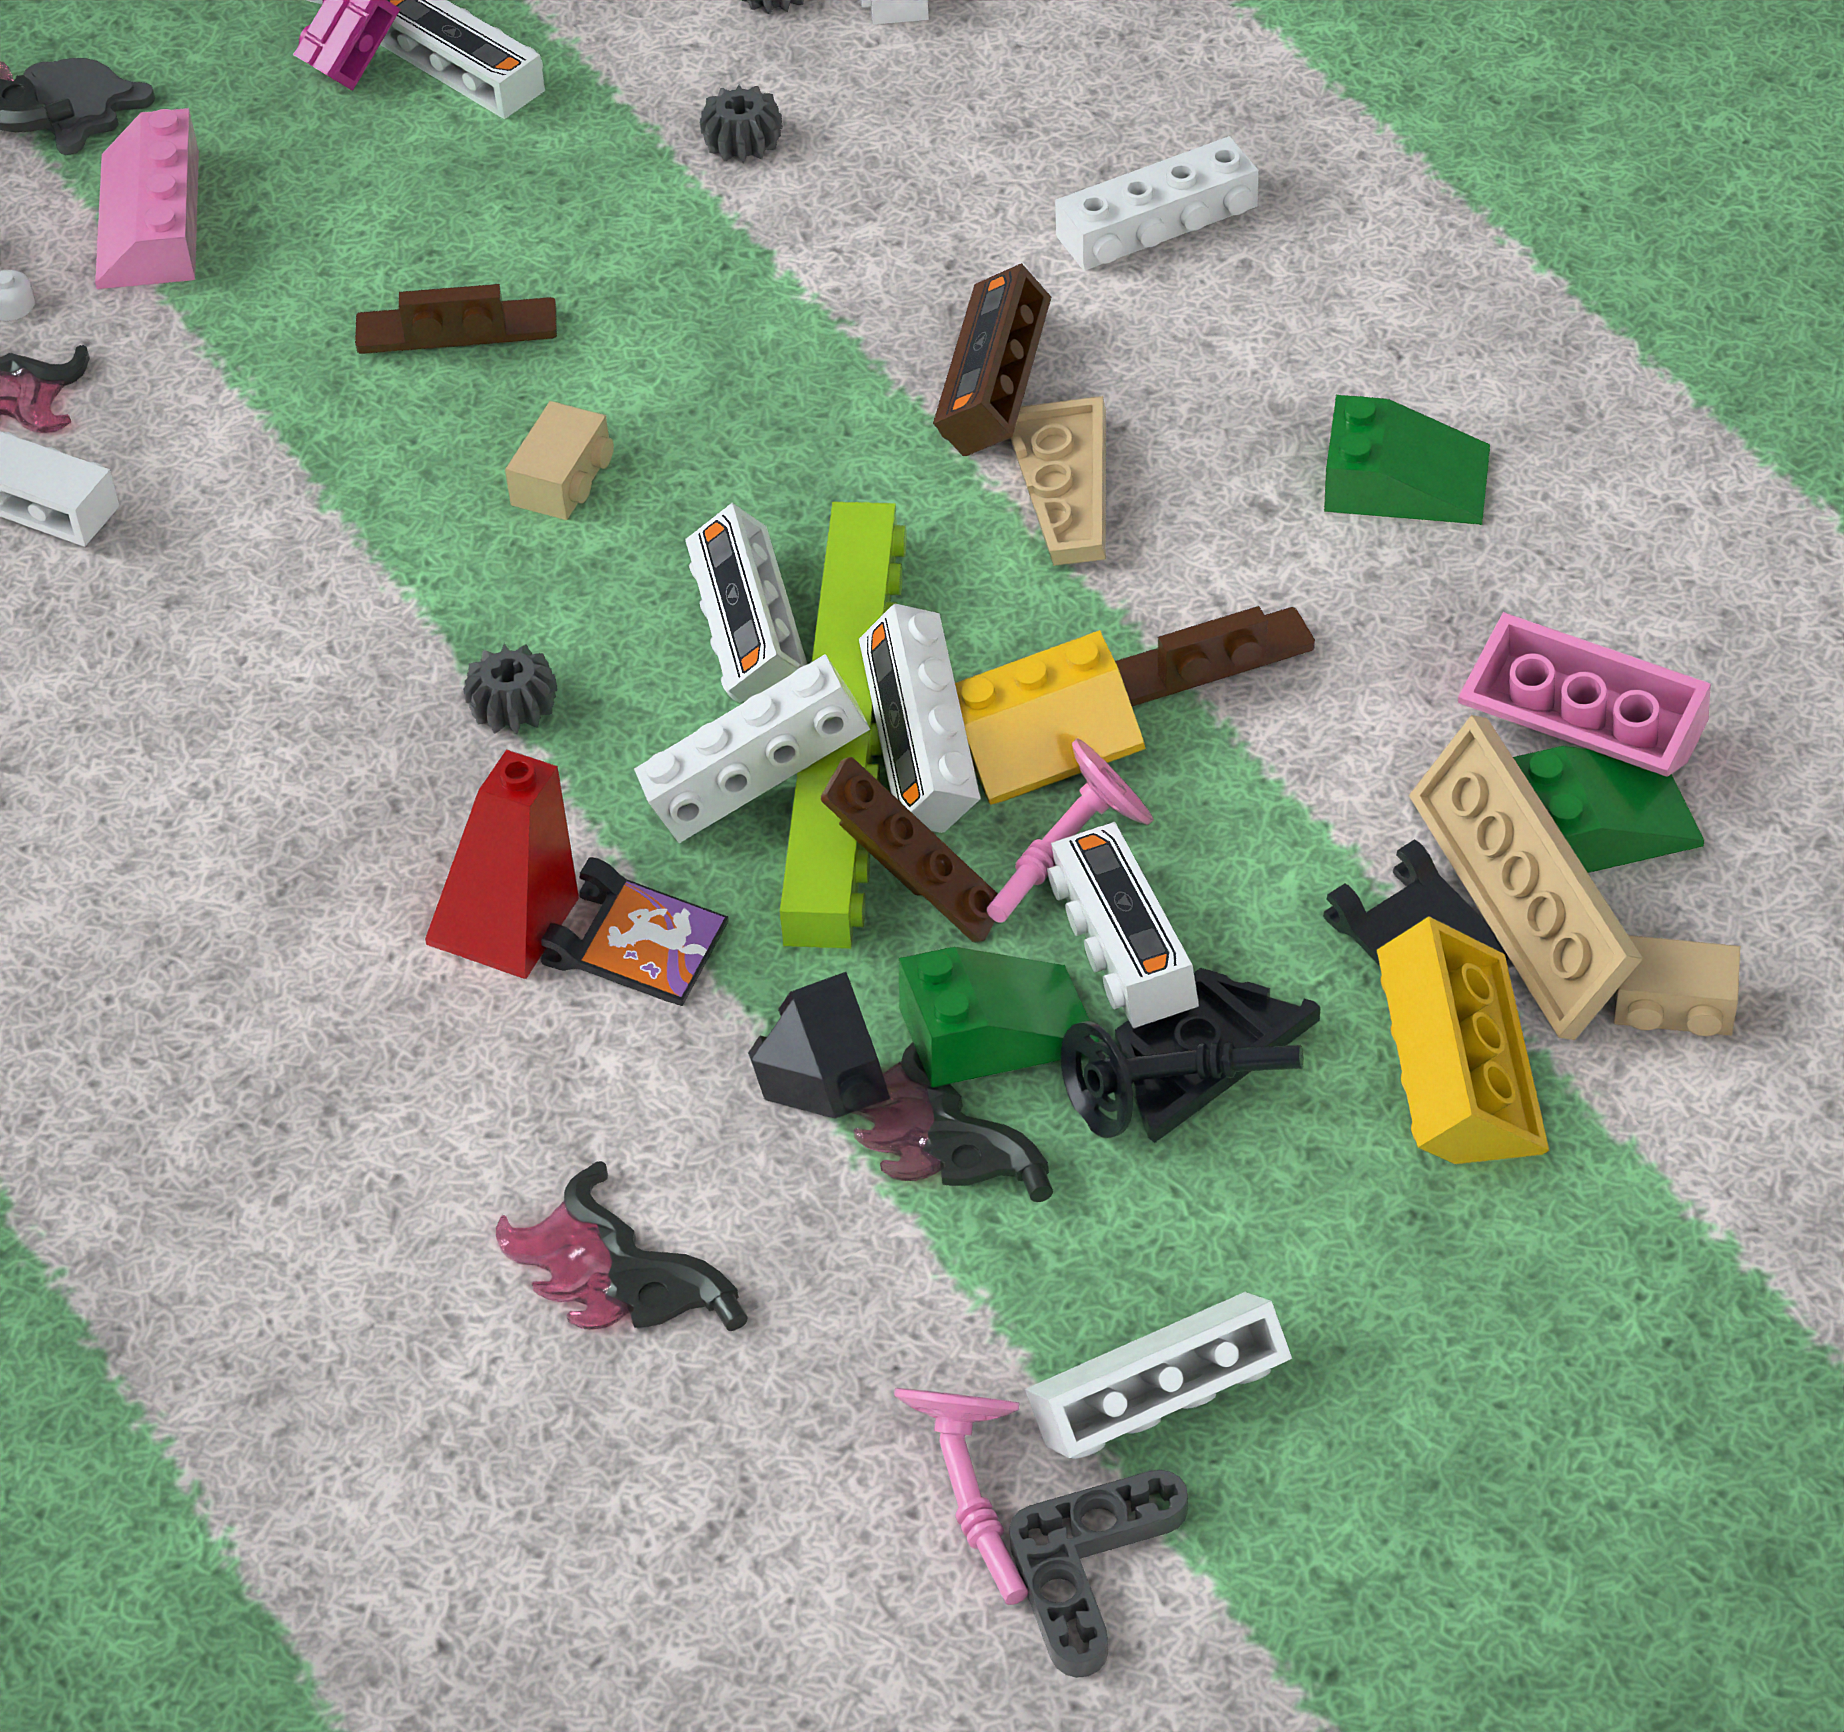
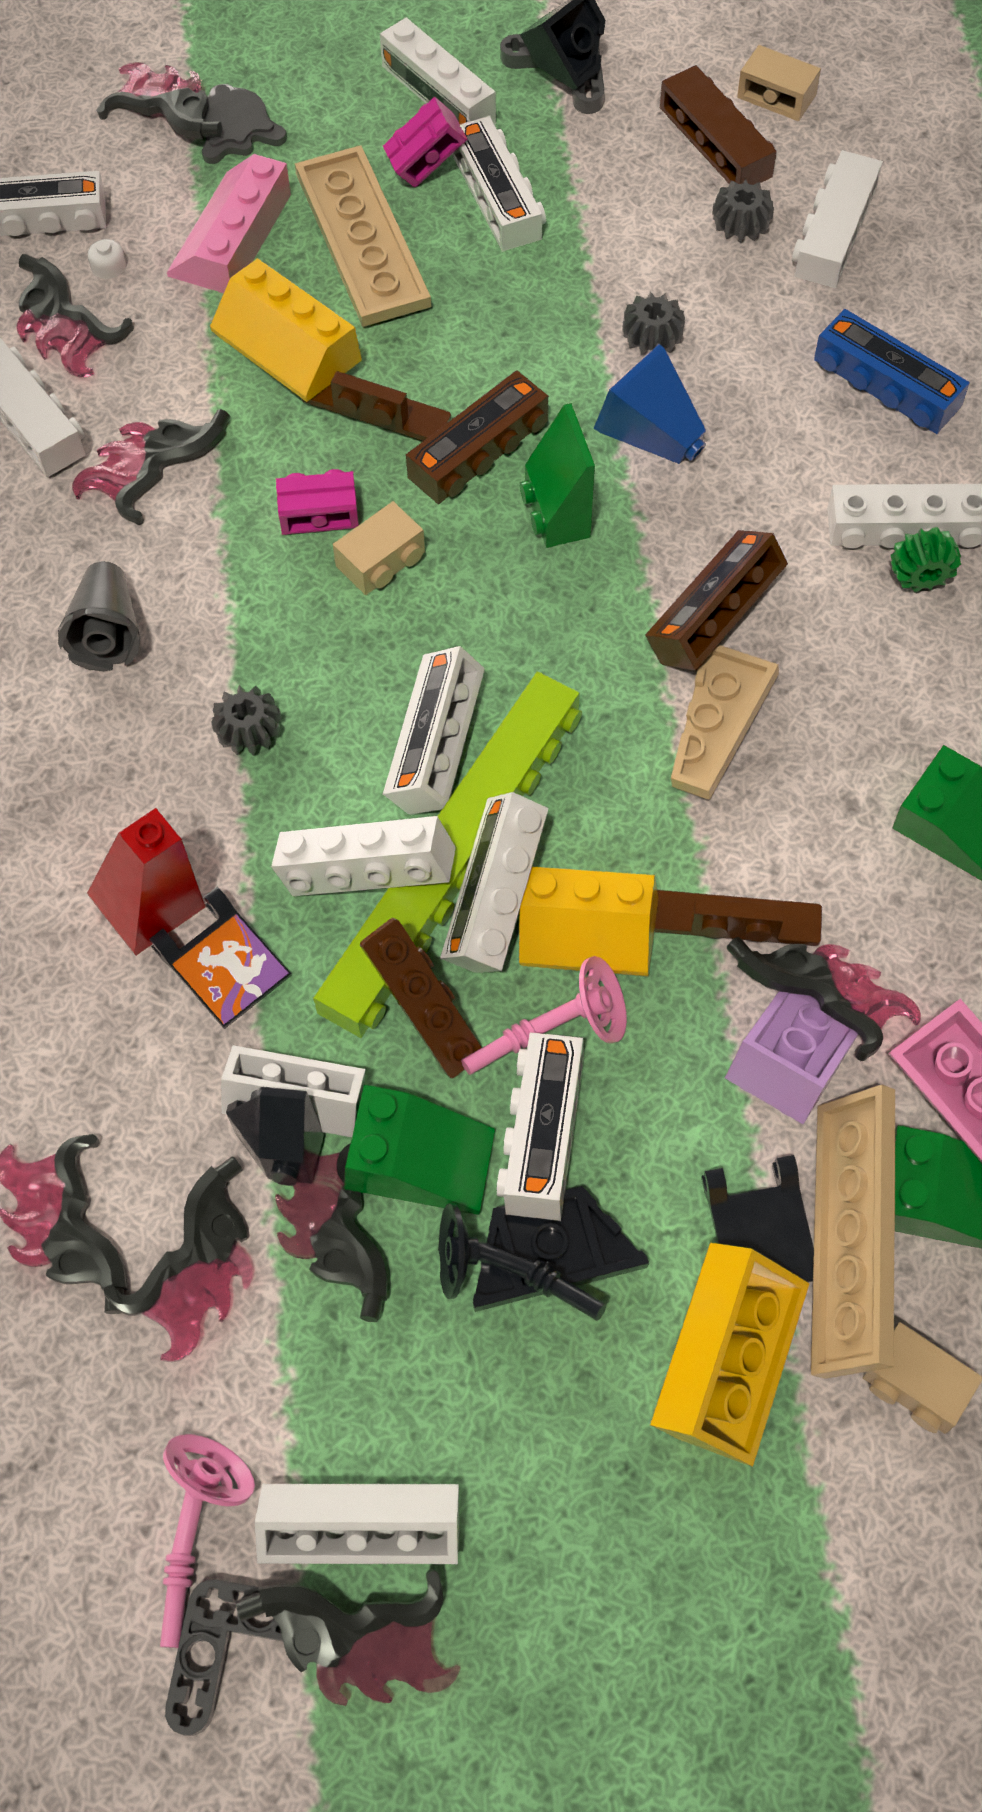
camera: 25 degrees right, 15 degrees up
(193, 486) = (138, 460): none -> piece
(268, 655) = (100, 620): none -> dark grey cone
(296, 282) = (285, 330): none -> yellow slope
(323, 158) = (362, 236): none -> tan plate
(451, 443) = (317, 502): none -> dark pink brick
(604, 309) = (477, 437): none -> reddish brown brick
(743, 303) = (560, 482): none -> green slope
(753, 1005) = (332, 1087): none -> white brick
(801, 206) = (653, 411): none -> blue slope
(813, 1237) = (199, 1272): none -> piece
(1047, 73) = (891, 371): none -> blue brick
(1204, 235) = (925, 559): none -> green gear
(1230, 1493) = (359, 1647): none -> piece
(1352, 750) = (791, 1054): none -> lavender slope
(1366, 673) = (839, 987): none -> pearl dark grey piece

